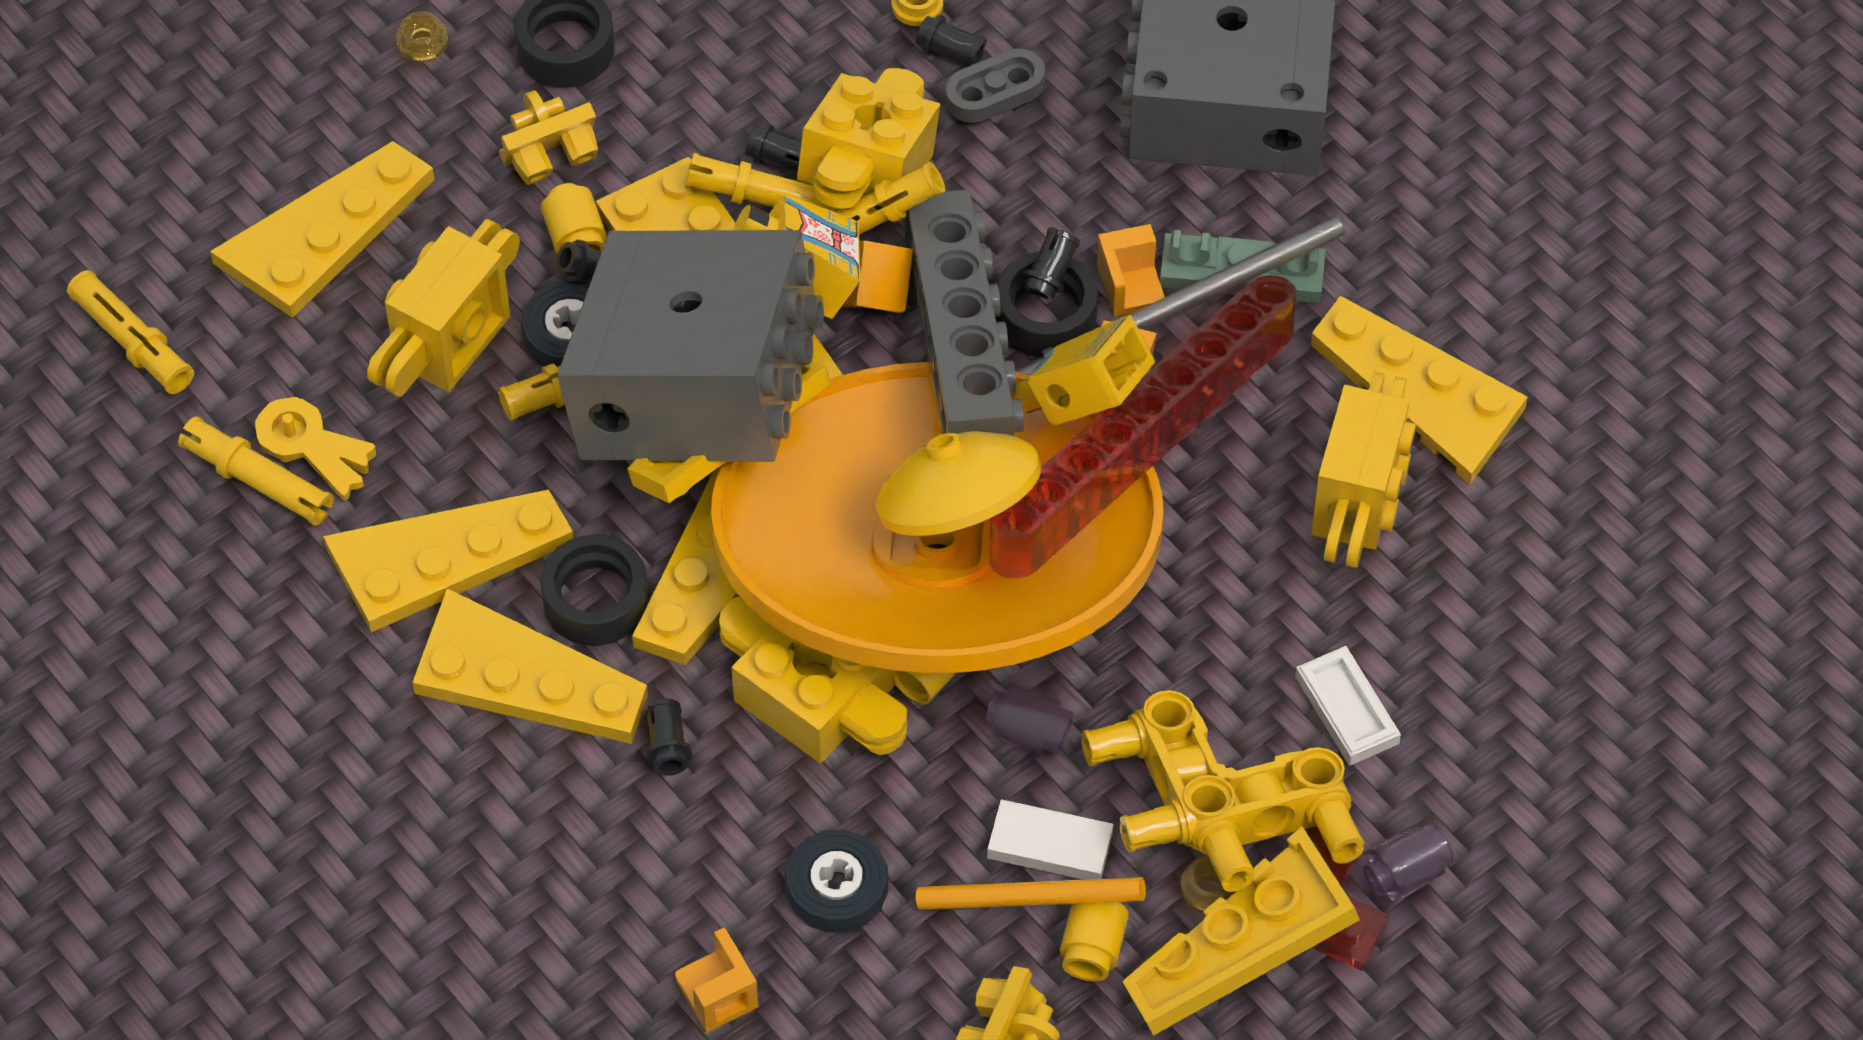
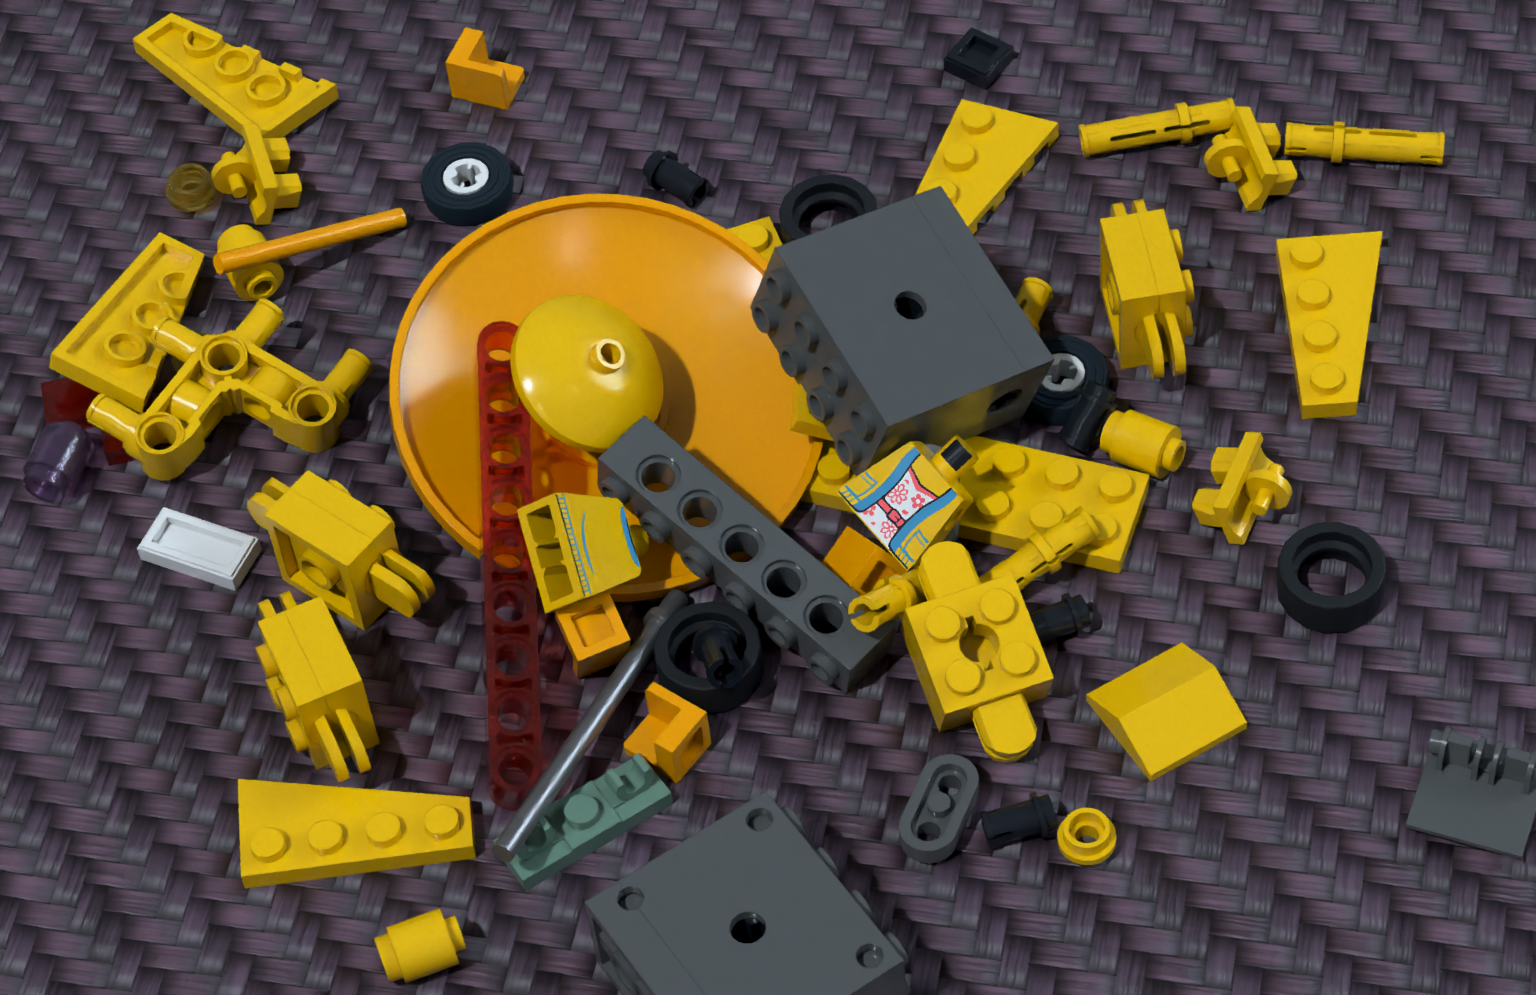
camera: 145 degrees right, 5 degrees down
(231, 379) = (1246, 159): none -> yellow hips
(295, 430) = (1164, 171): yellow piece -> none
(305, 662) = (978, 58): none -> black tile
(421, 26) = (1444, 486): clear yellow plate -> none
(518, 672) = (847, 141): yellow wing -> none
(768, 50) = (1168, 710): none -> yellow slope
(1050, 841) = (341, 309): white tile -> none
(1254, 568) = (339, 549): none -> yellow brick
(1440, 248) = (420, 946): none -> yellow brick

